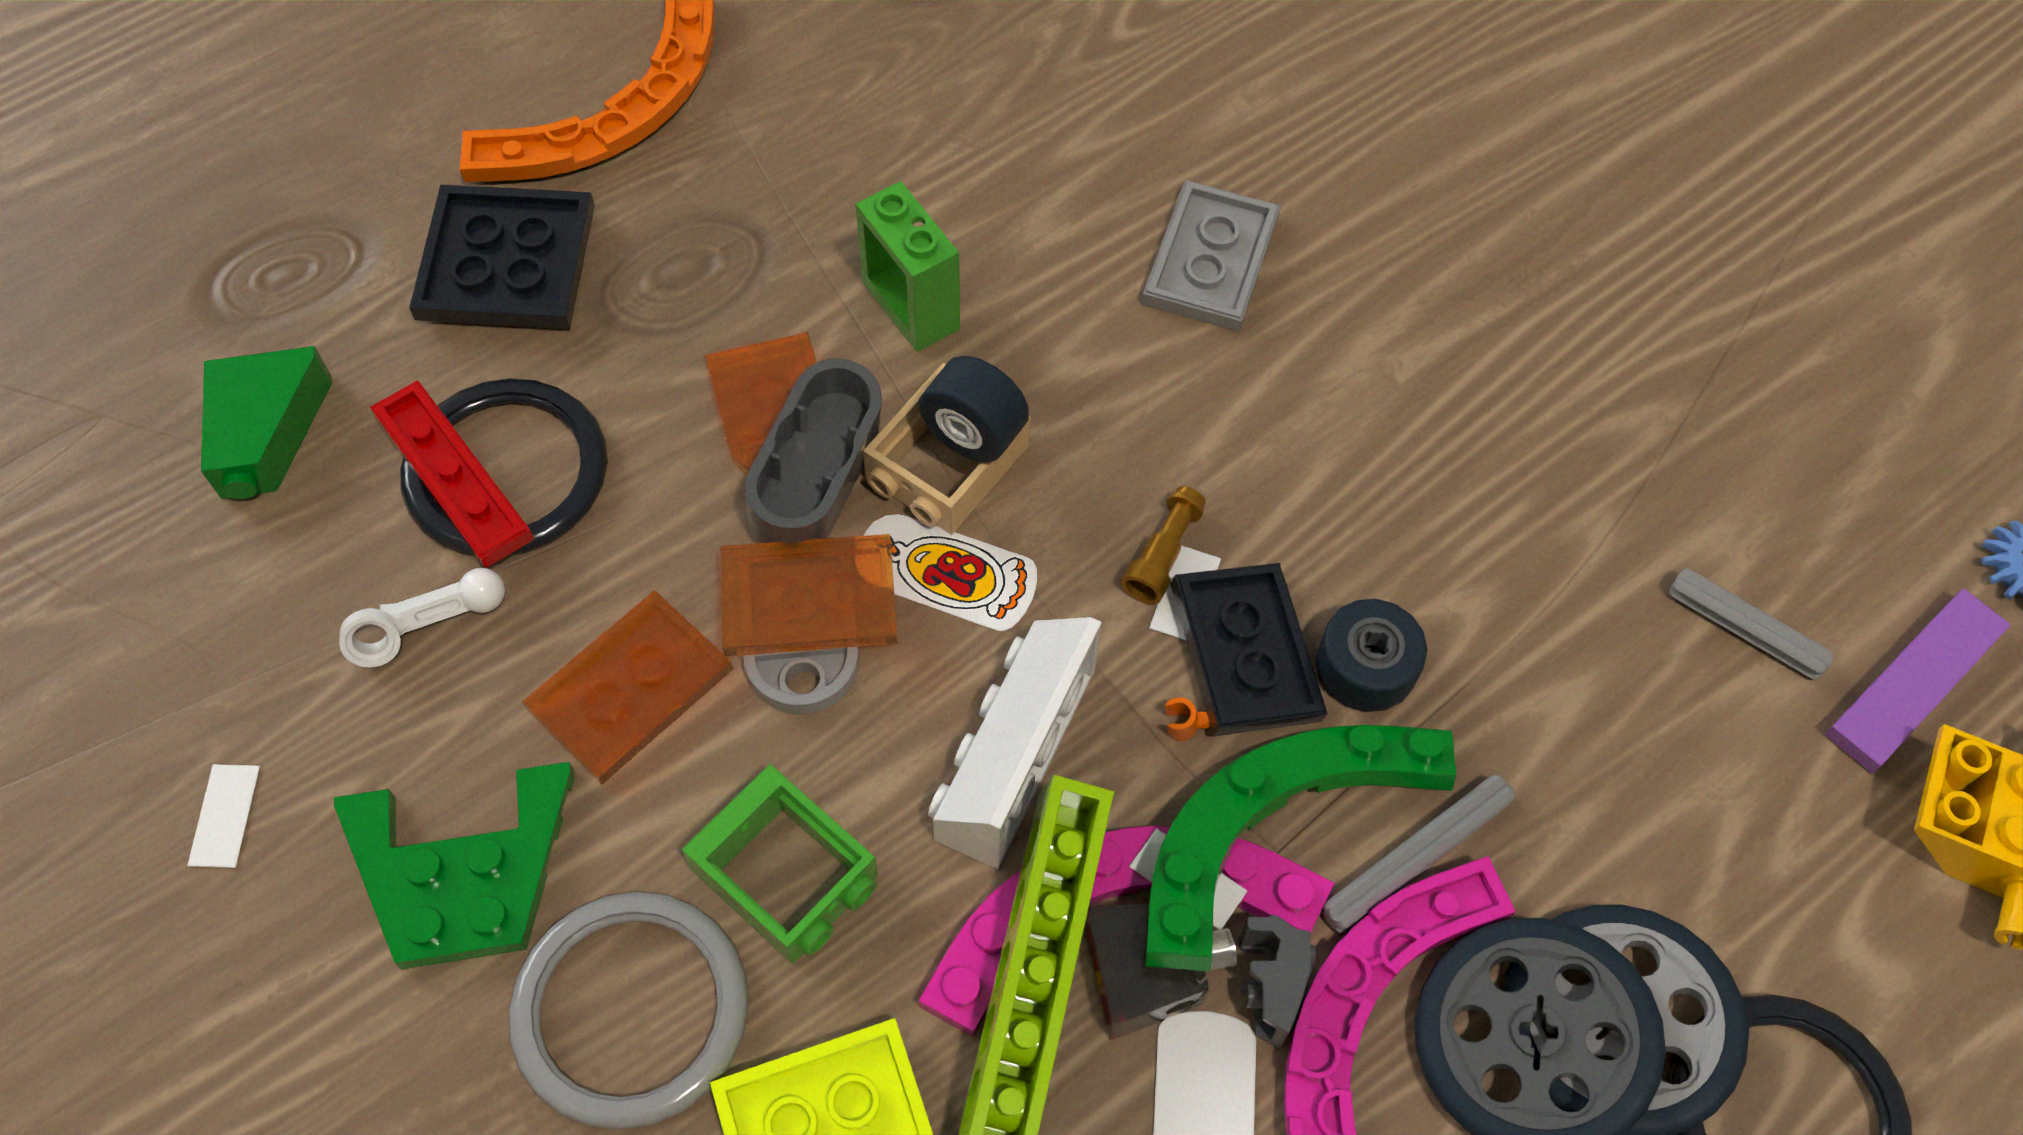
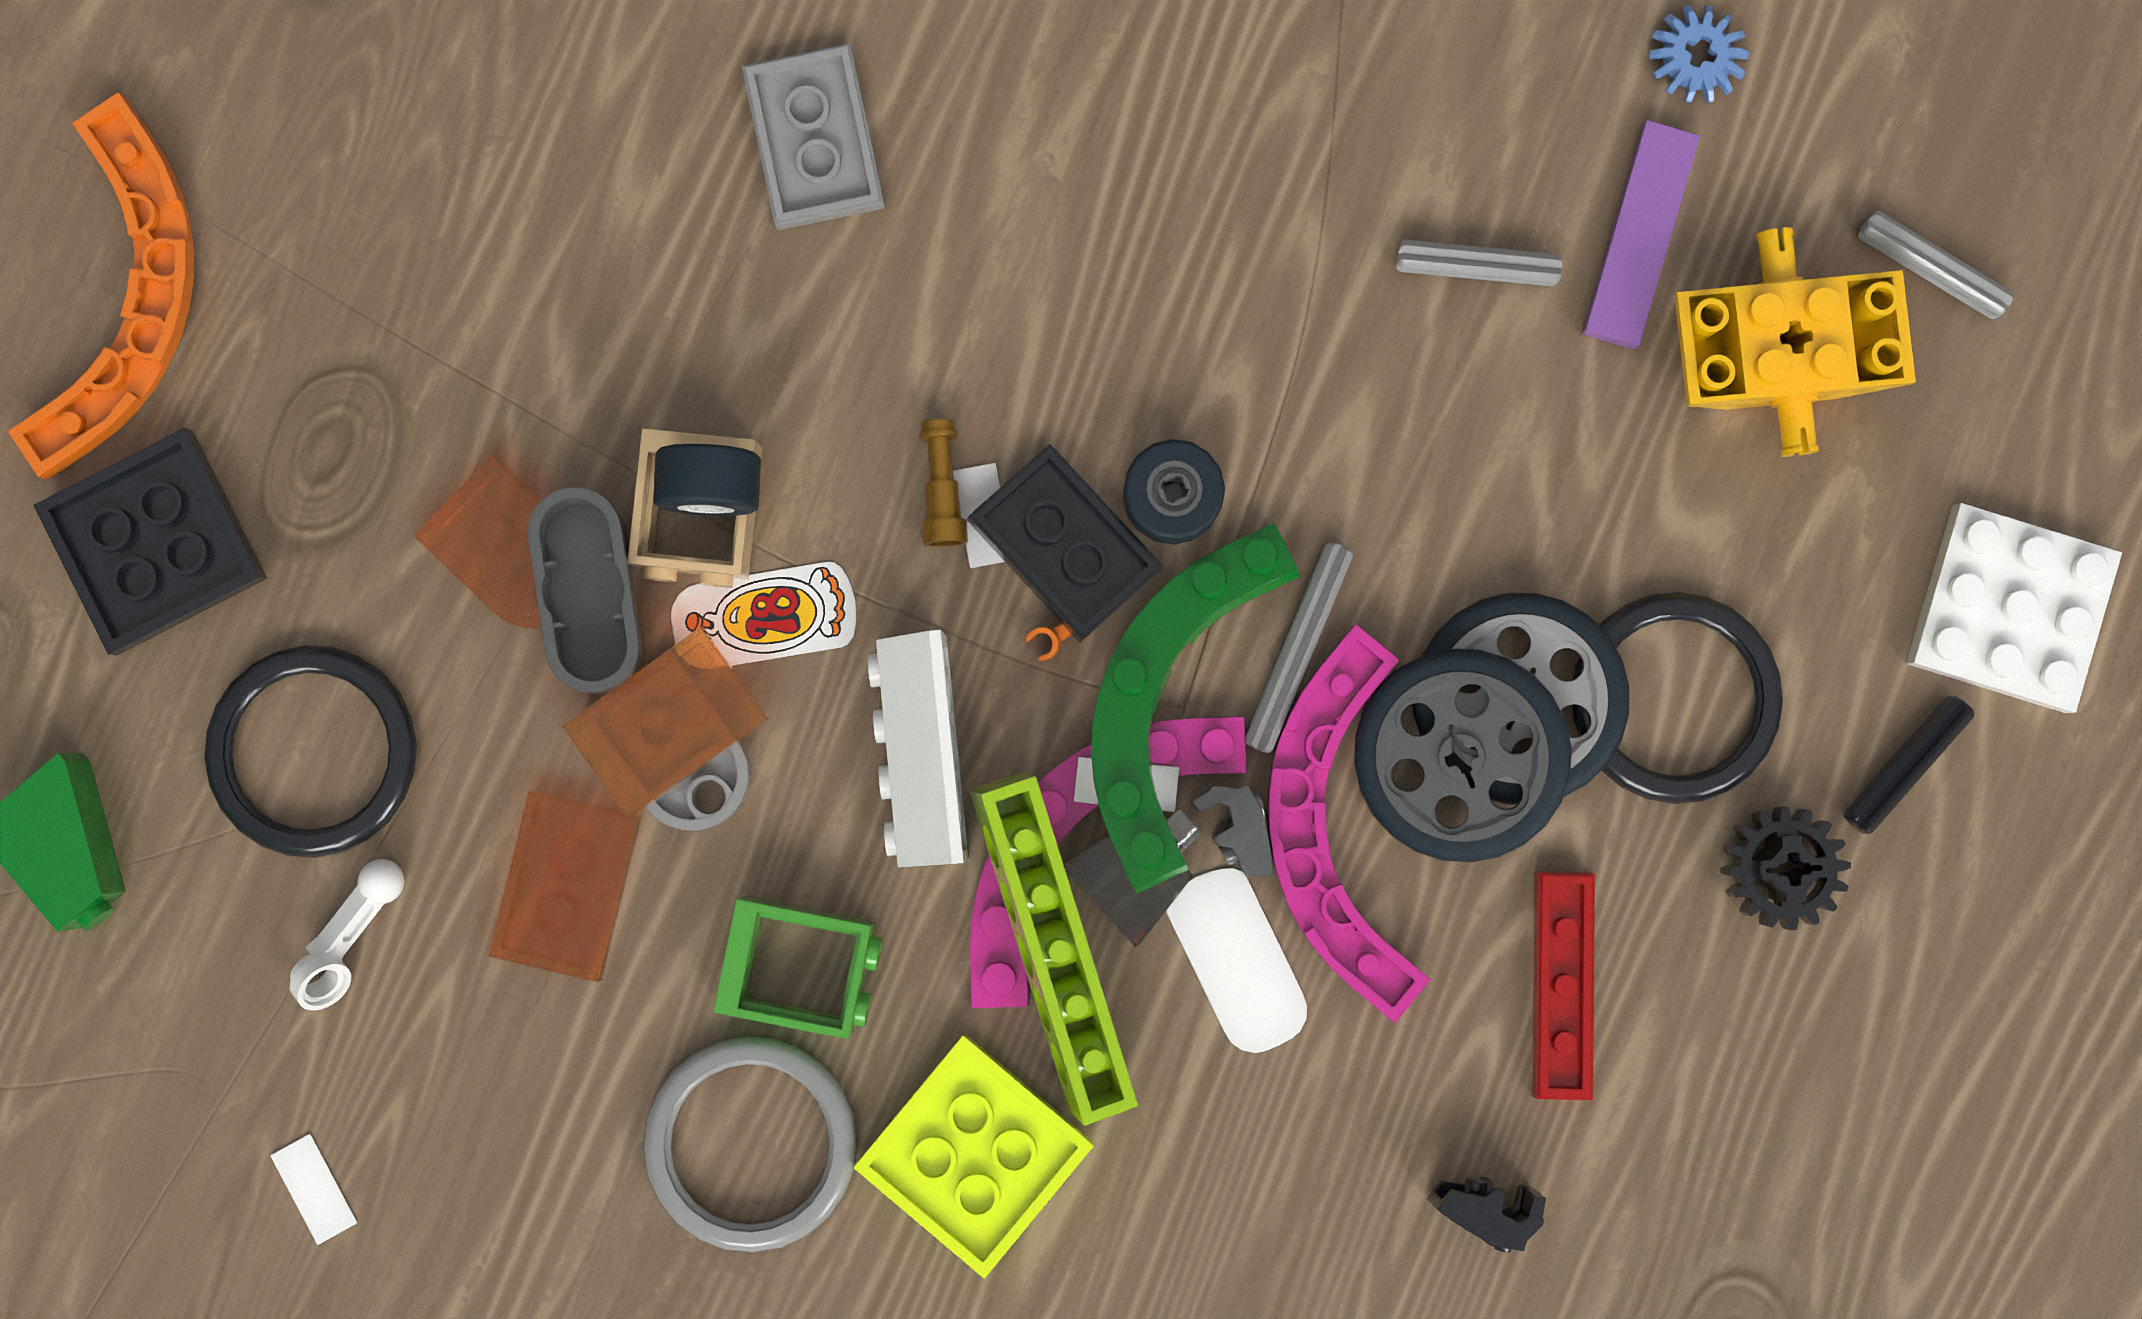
camera: 30 degrees left, 25 degrees up
(452, 474) = (273, 793): red tile -> none
(462, 892) = (551, 1138): green wing -> none
(909, 267) = (546, 348): bright green window -> none

